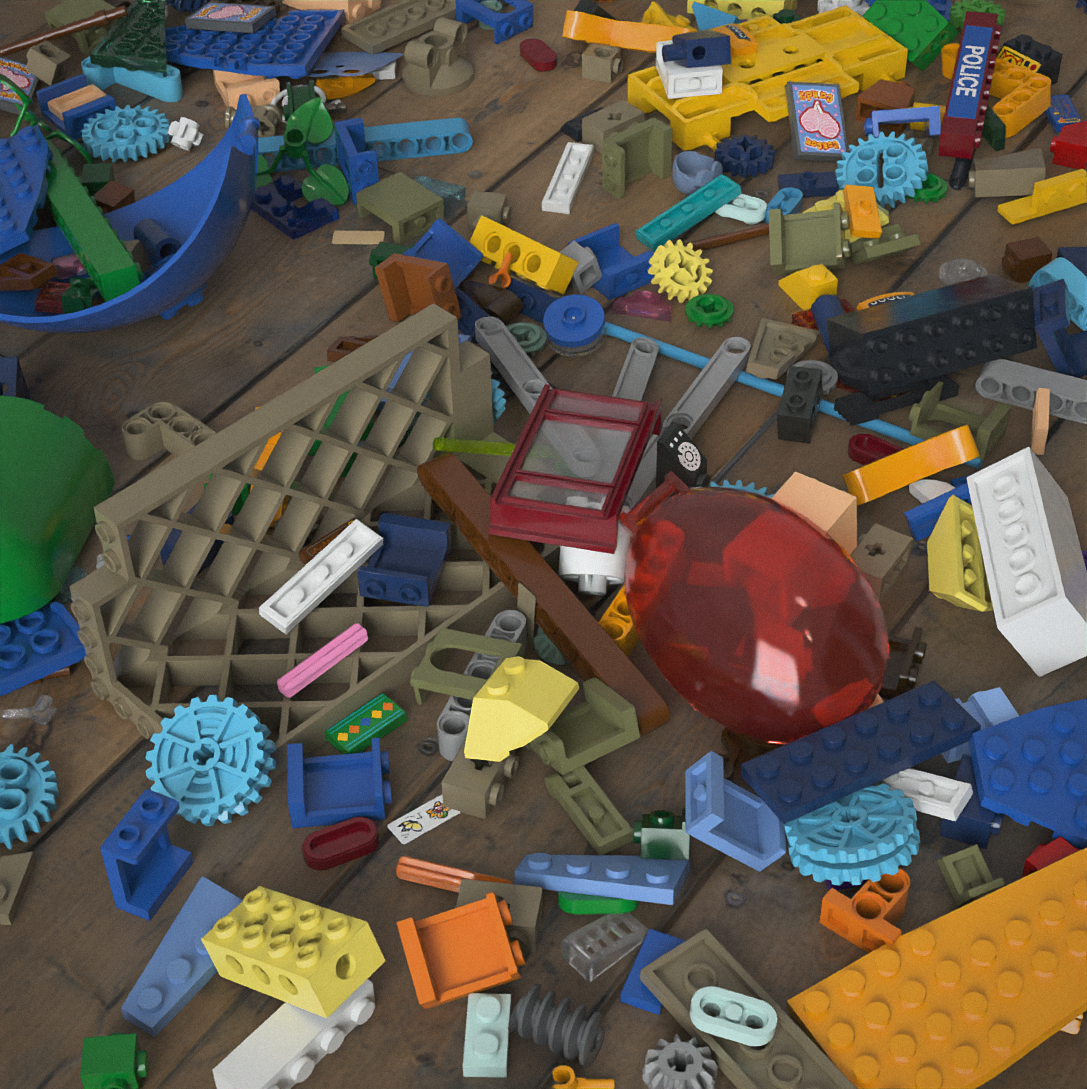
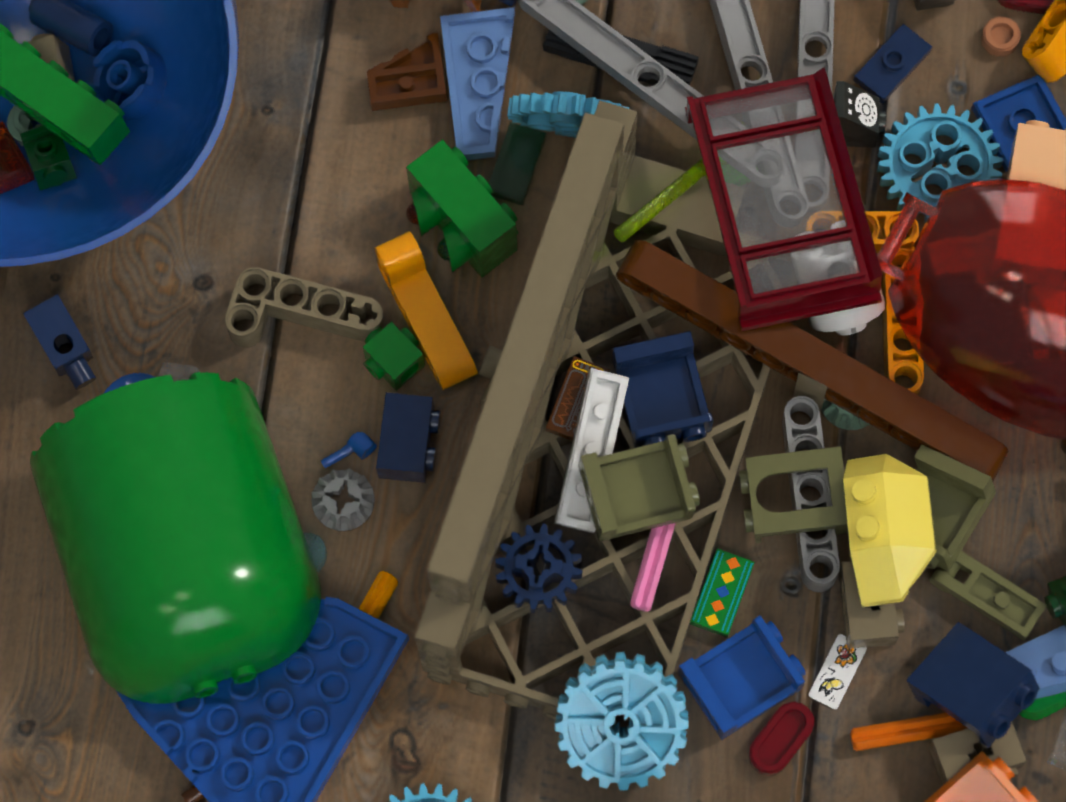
camera: 25 degrees left, 30 degrees up
(38, 713) = (395, 726): clear hand -> none
(222, 631) = (553, 570): none -> dark blue gear
(332, 602) = (638, 488): none -> olive panel
(527, 853) = (974, 683): none -> dark blue panel
(738, 458) = (892, 63): none -> dark blue plate
(833, 468) = (1000, 36): none -> nougat tile

